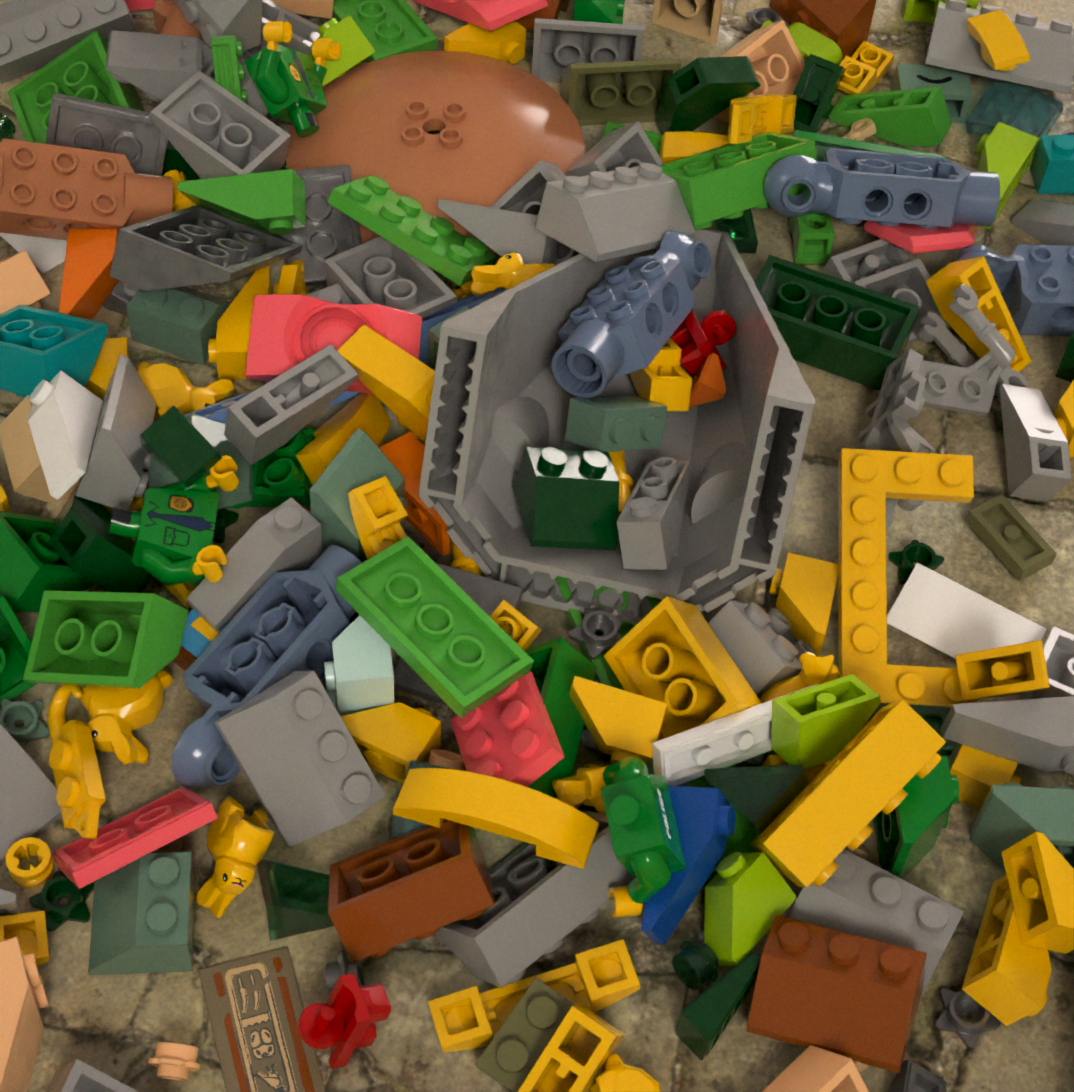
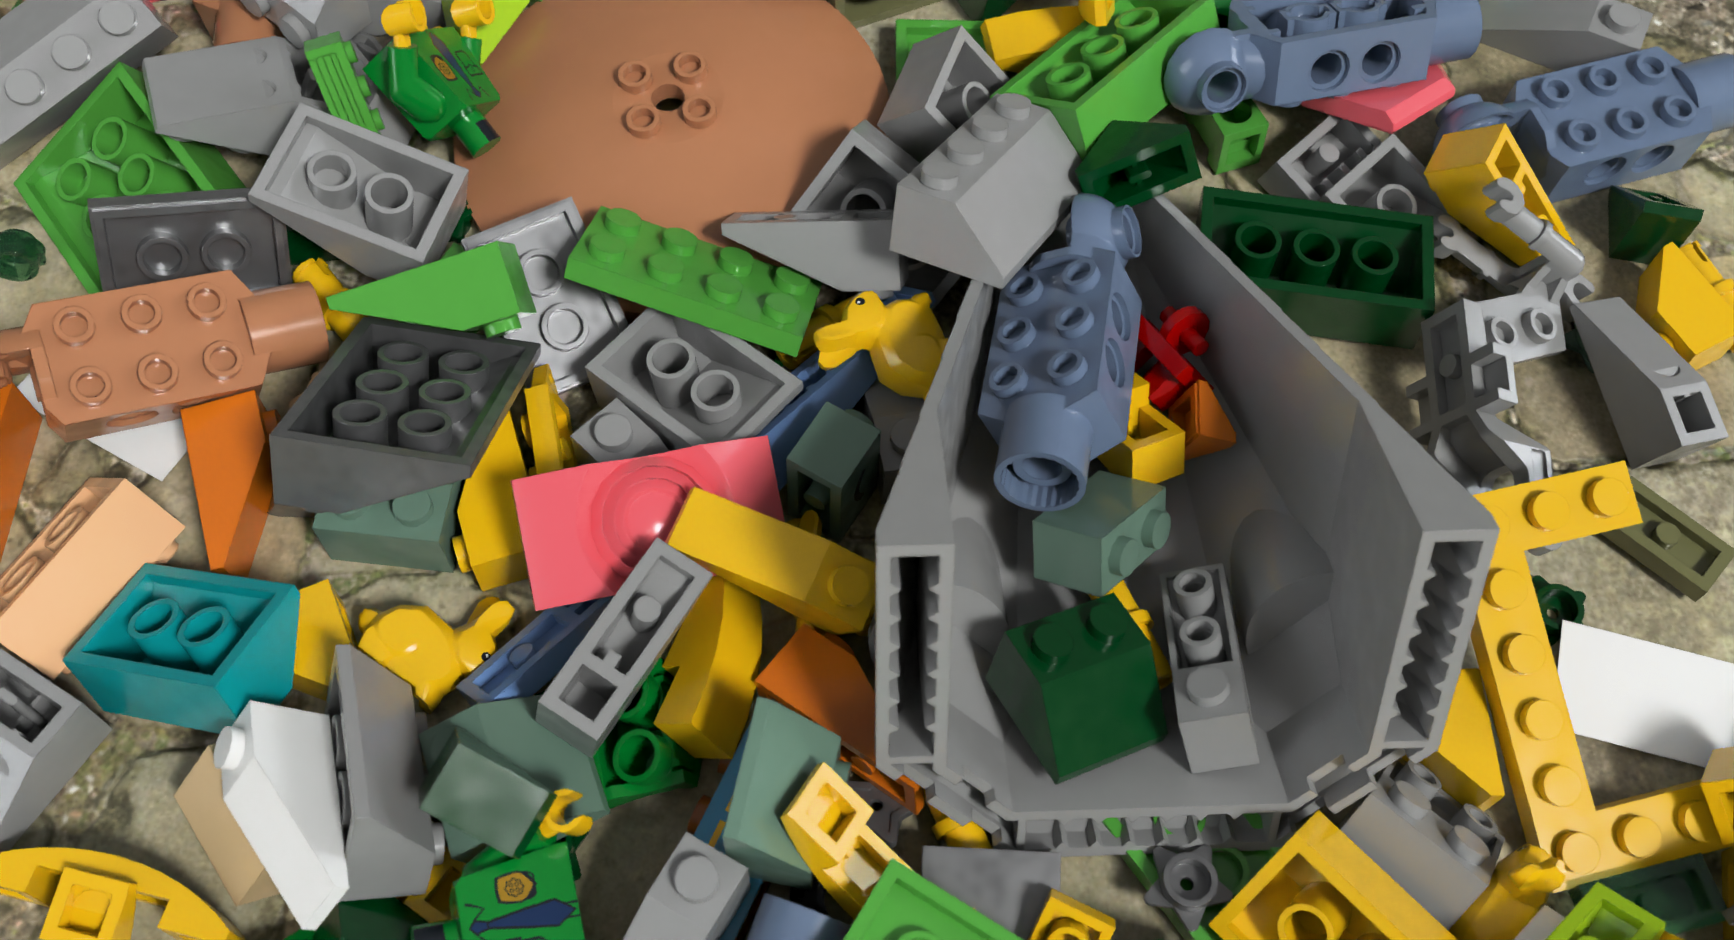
camera: 15 degrees left, 10 degrees up
(725, 225) = (1138, 162): none -> dark green slope

